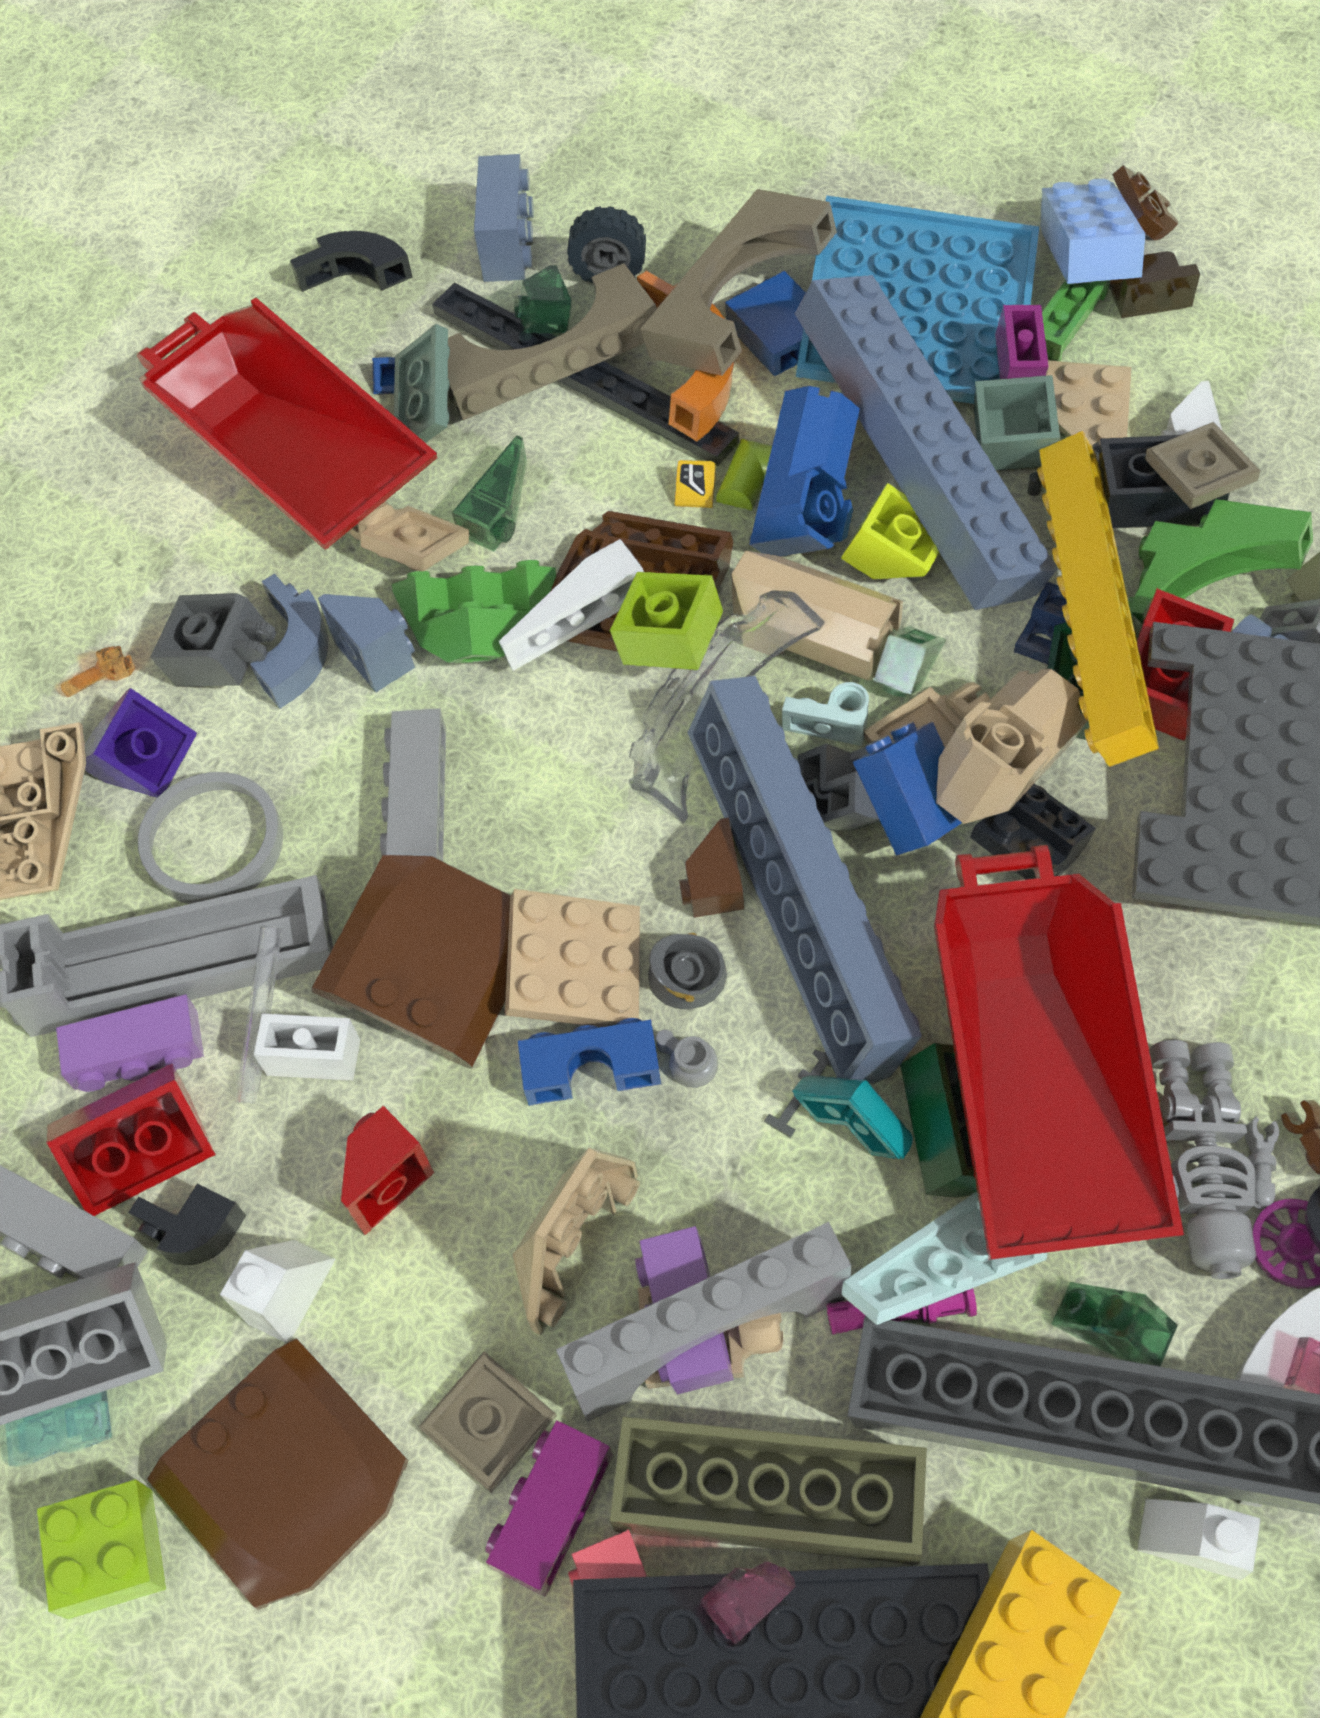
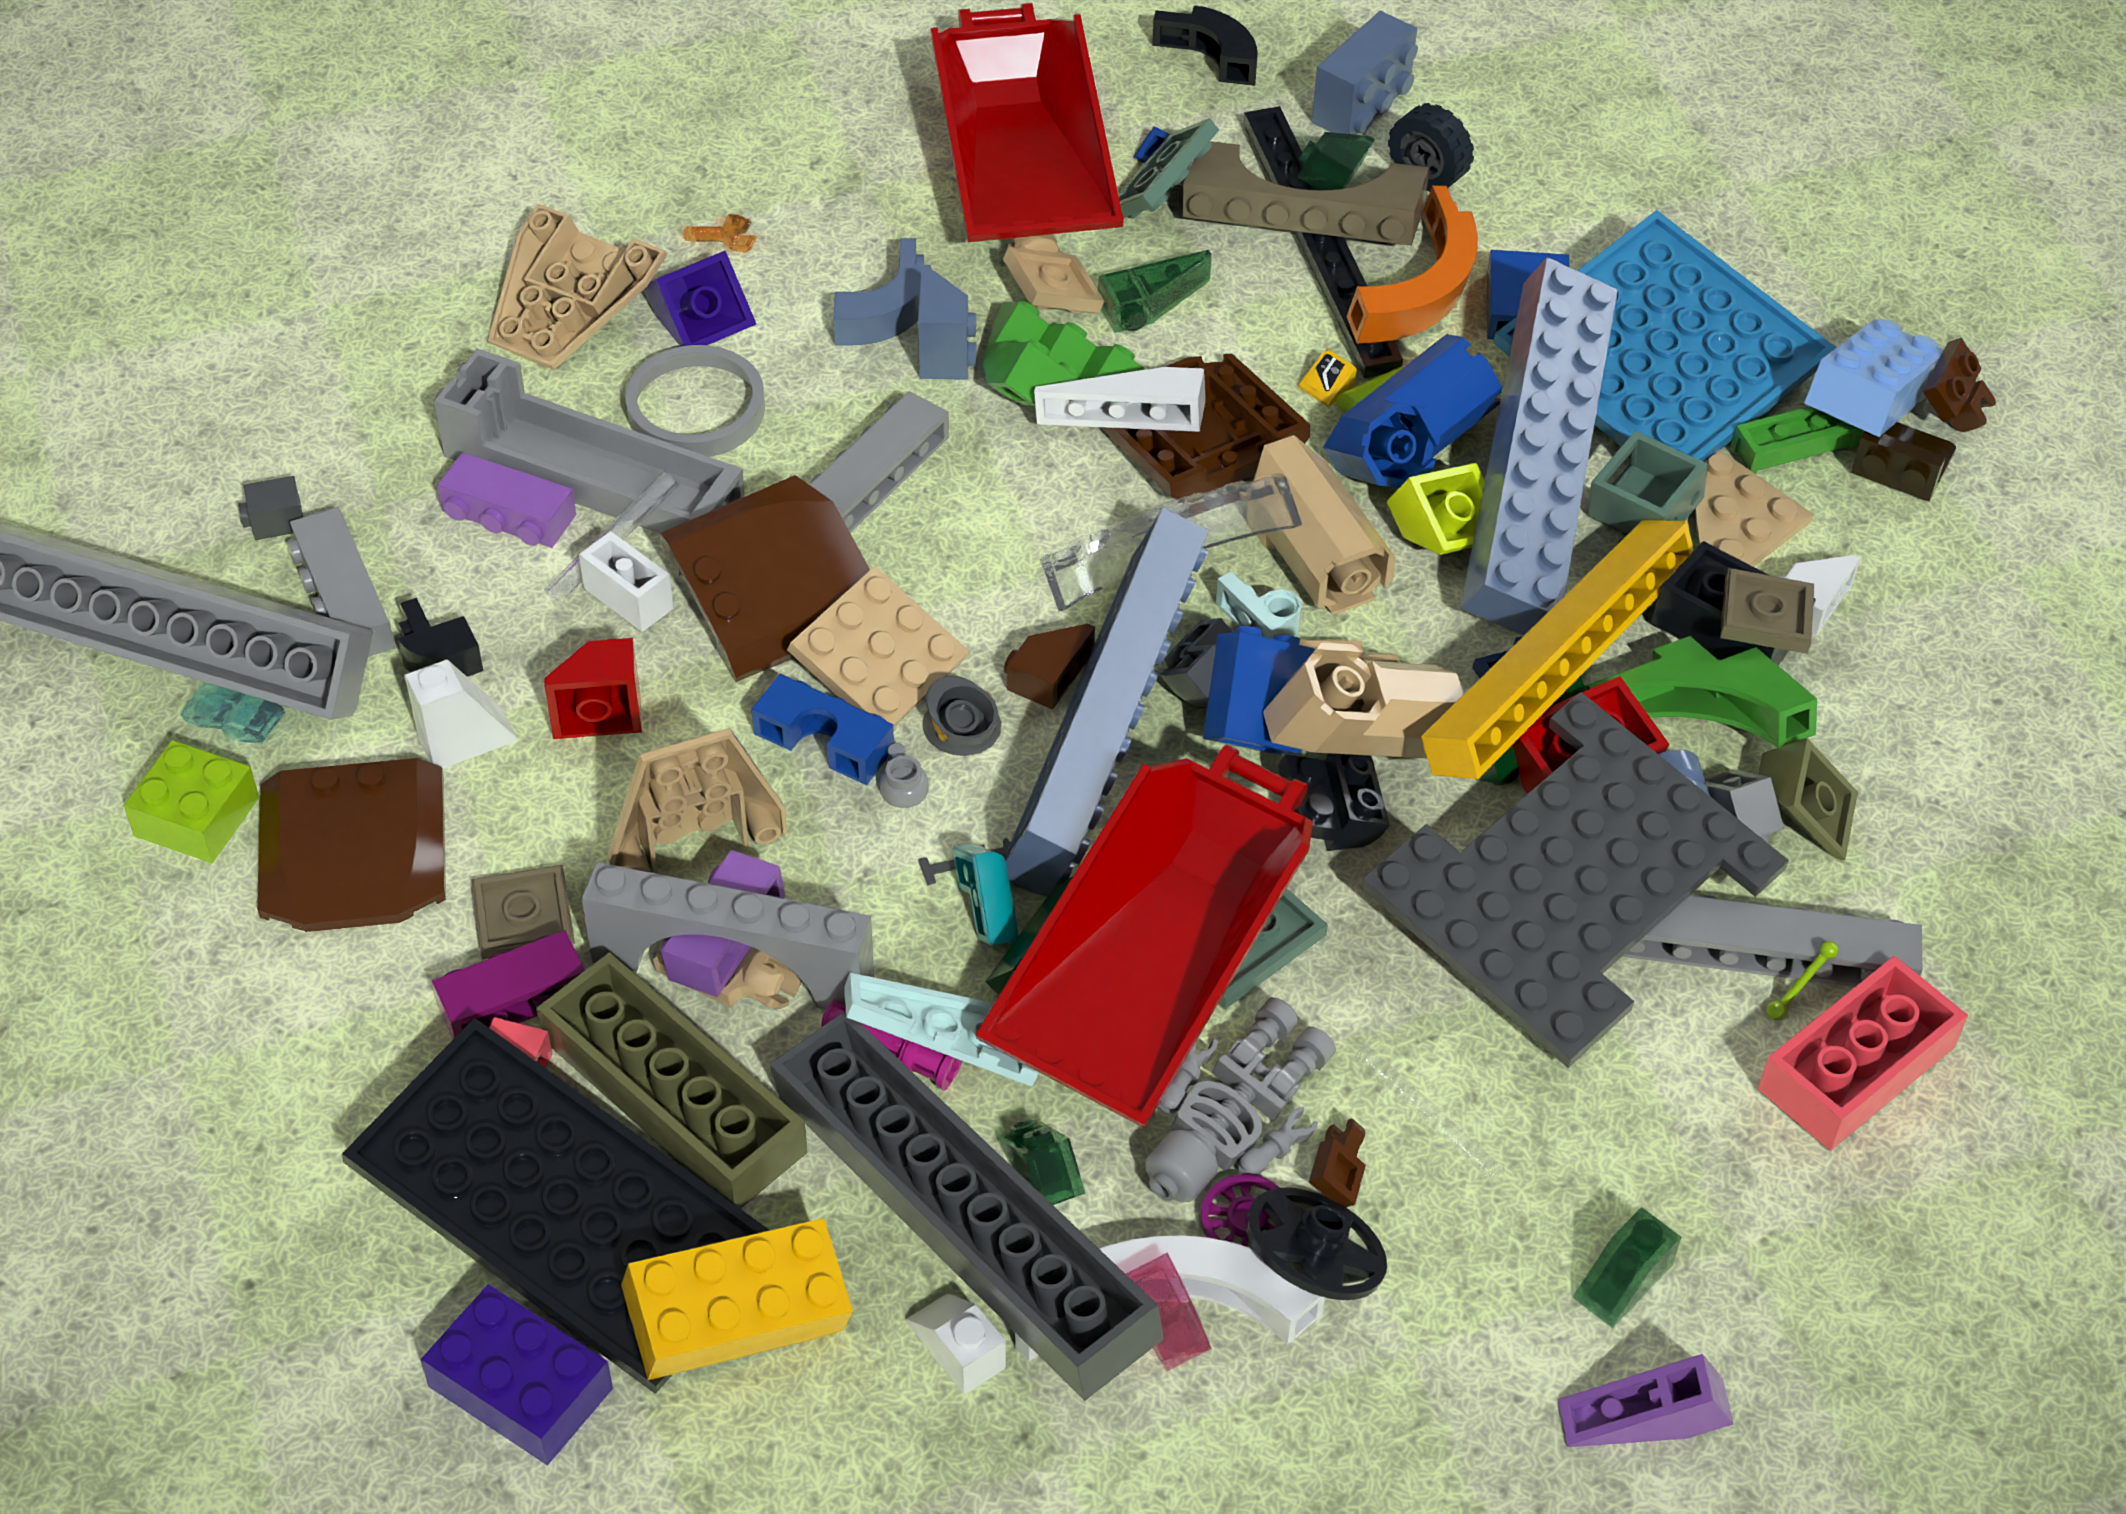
camera: 30 degrees right, 10 degrees down
(129, 1140) = (447, 564): red slope -> none
(211, 640) = (821, 257): dark grey hinge -> none
(667, 620) = (1179, 448): lime brick -> none
(747, 1598) = (581, 1114): clear pink rock -> none
(765, 227) = (1573, 204): dark tan arch -> none
(907, 660) = (1367, 611): clear green slope -> none
(1021, 342) = (1708, 422): magenta brick -> none

